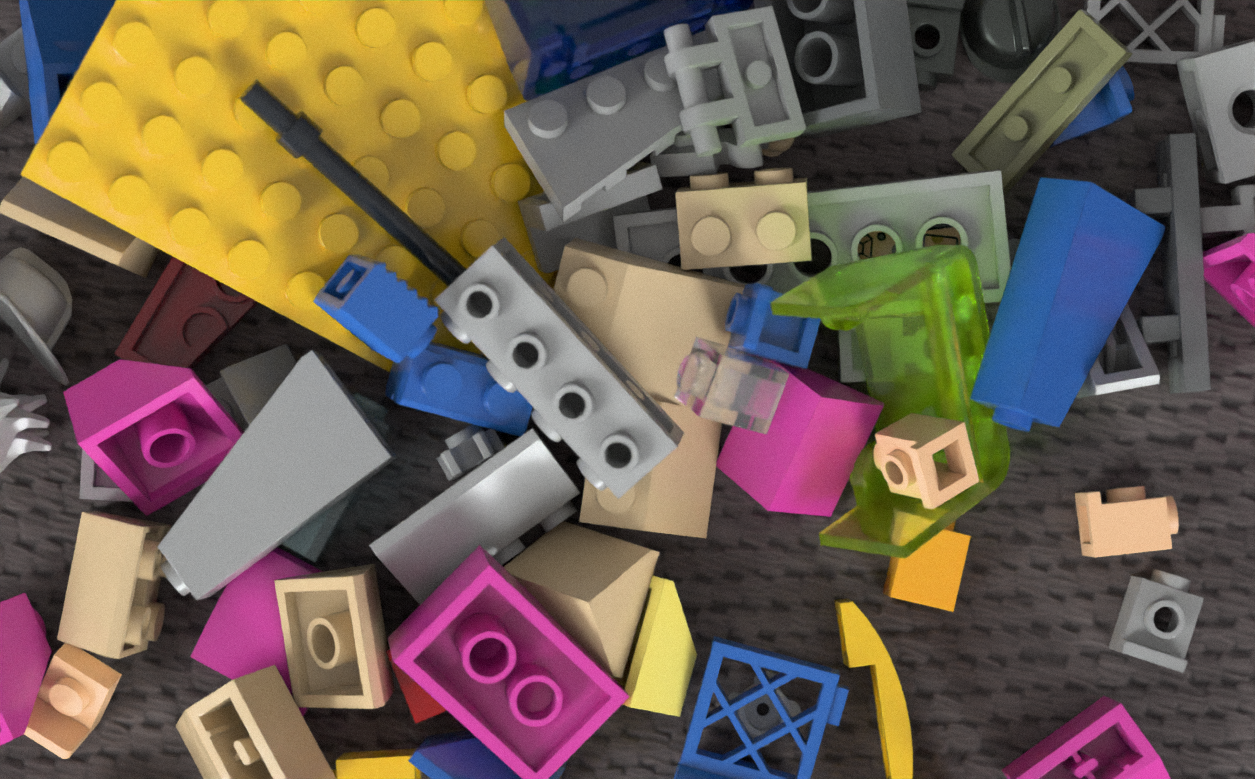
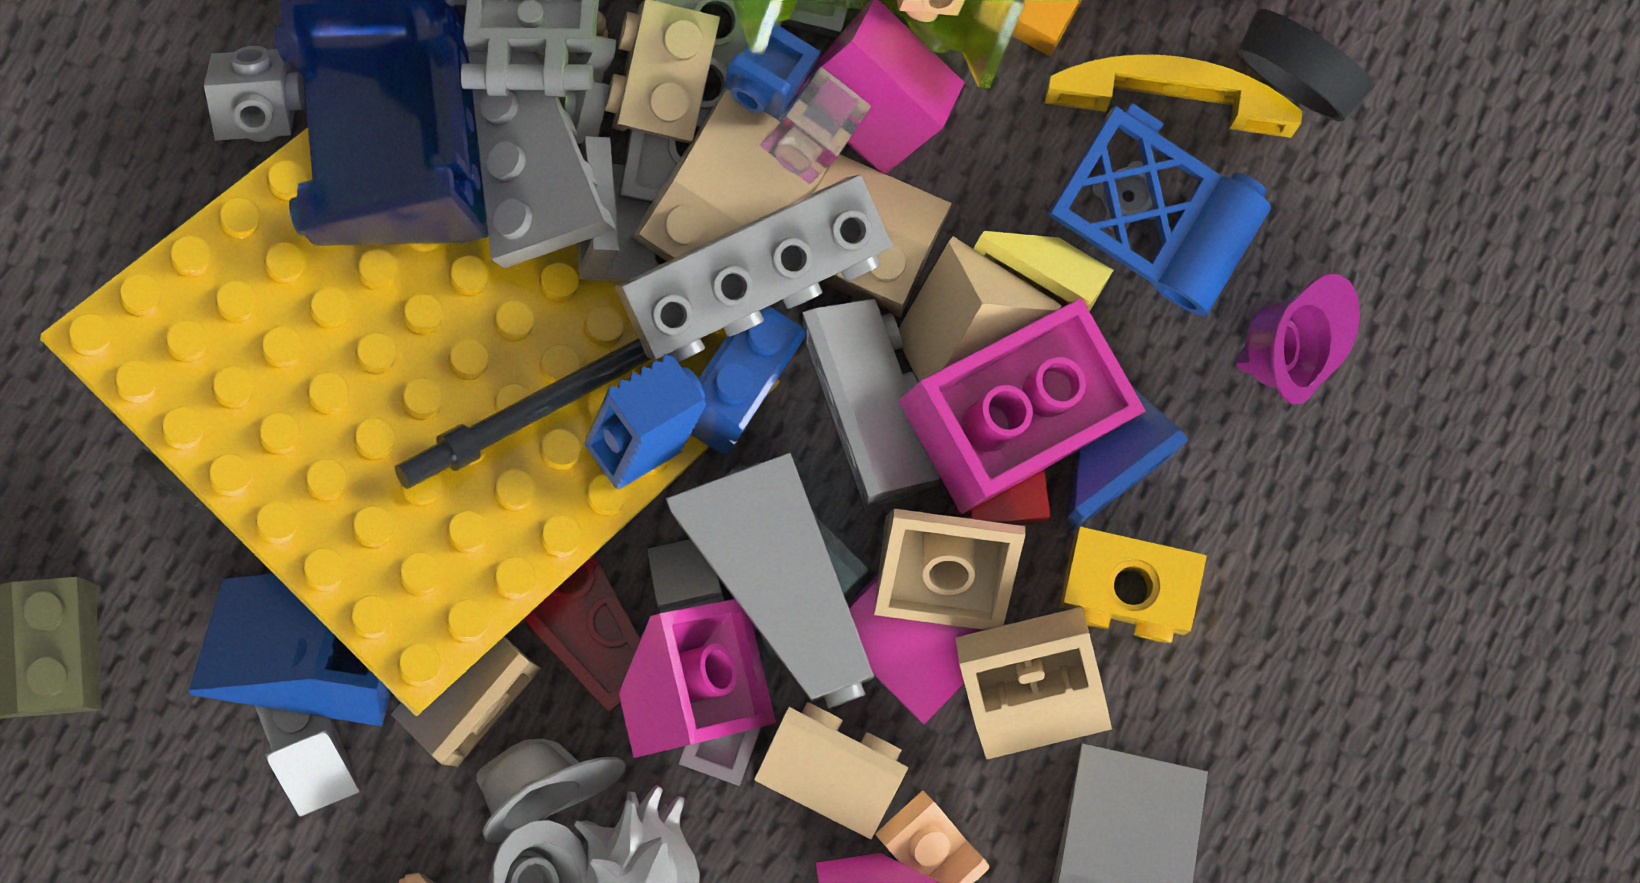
camera: 75 degrees left, 5 degrees down
(469, 450) = (803, 394): light grey plate -> none

